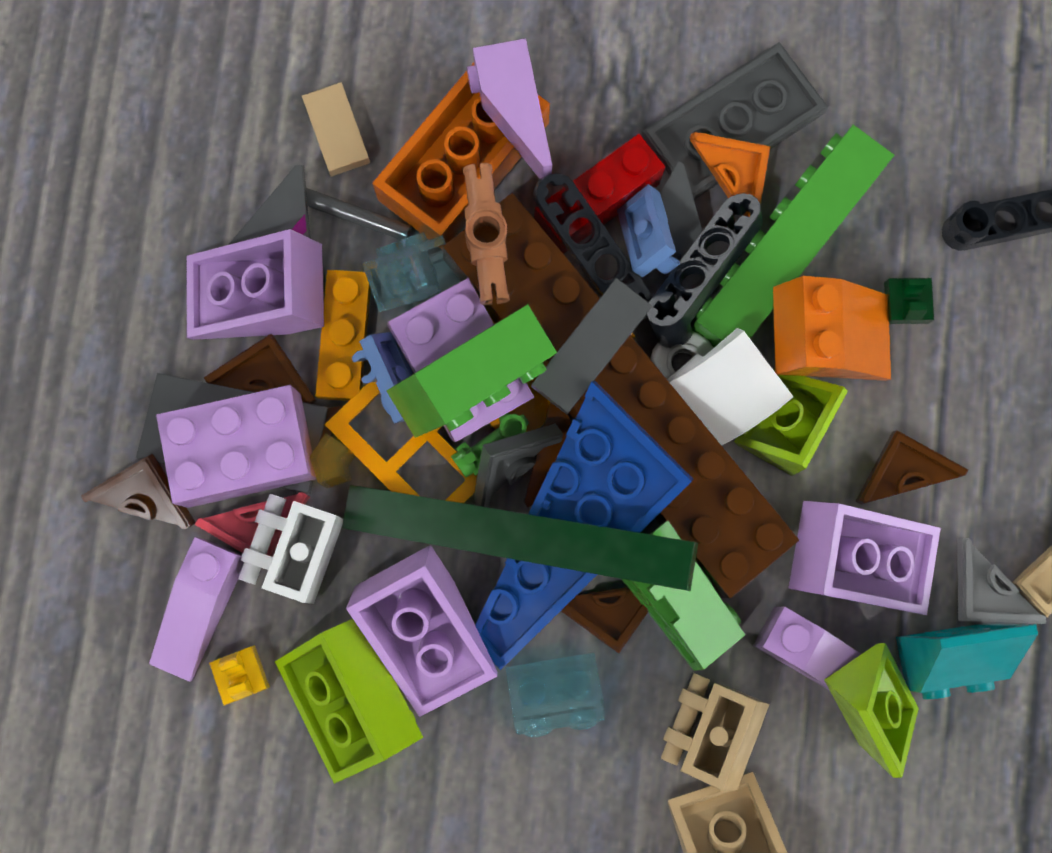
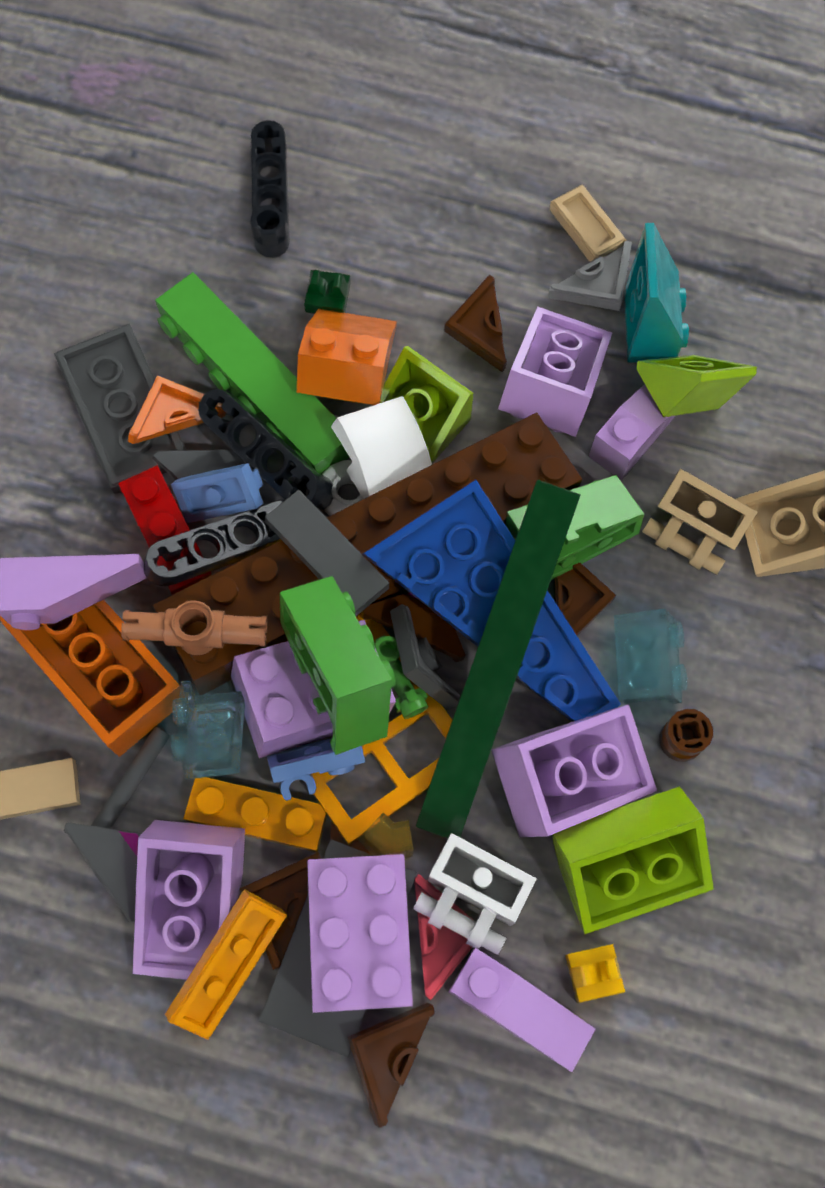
camera: 80 degrees left, 10 degrees down
(199, 333) = (225, 965): none -> light orange tile
(485, 740) = (679, 742): none -> reddish brown wheel

